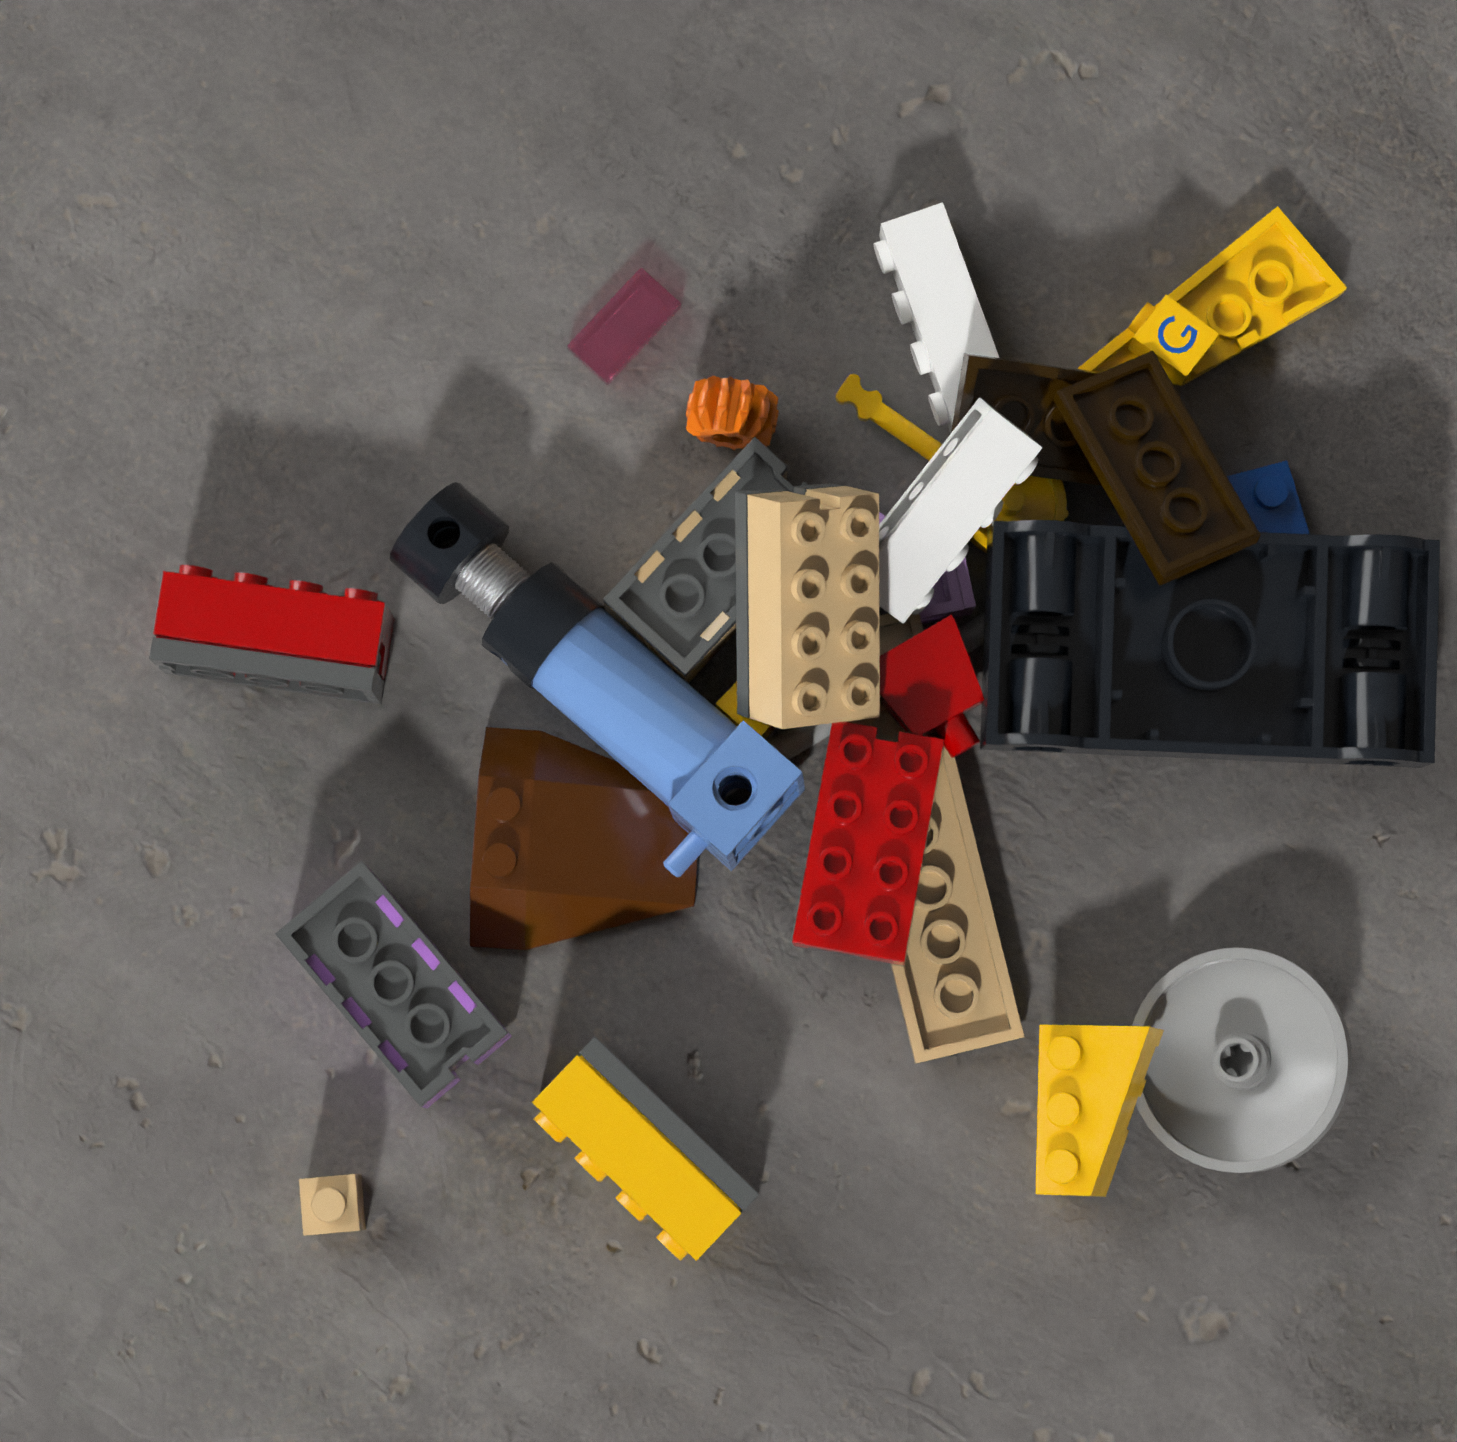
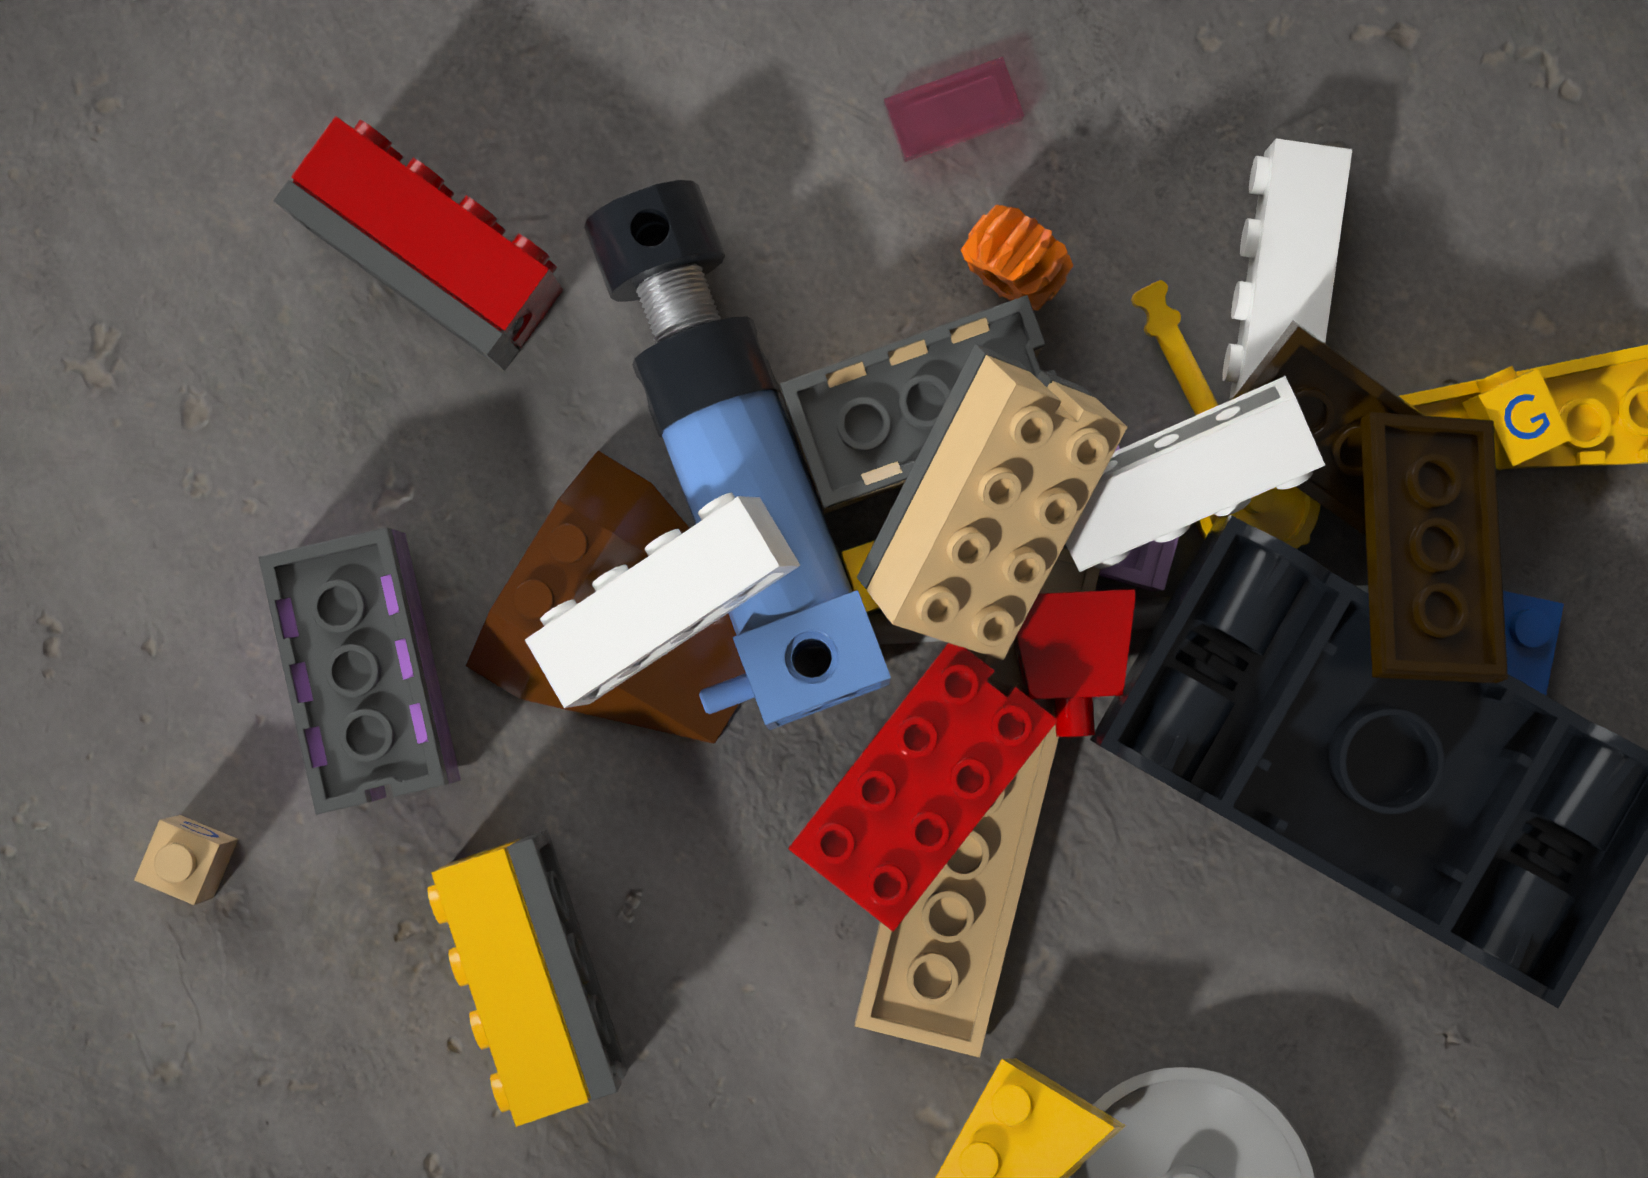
camera: 25 degrees right, 5 degrees up
(599, 805) = (661, 600): none -> white brick

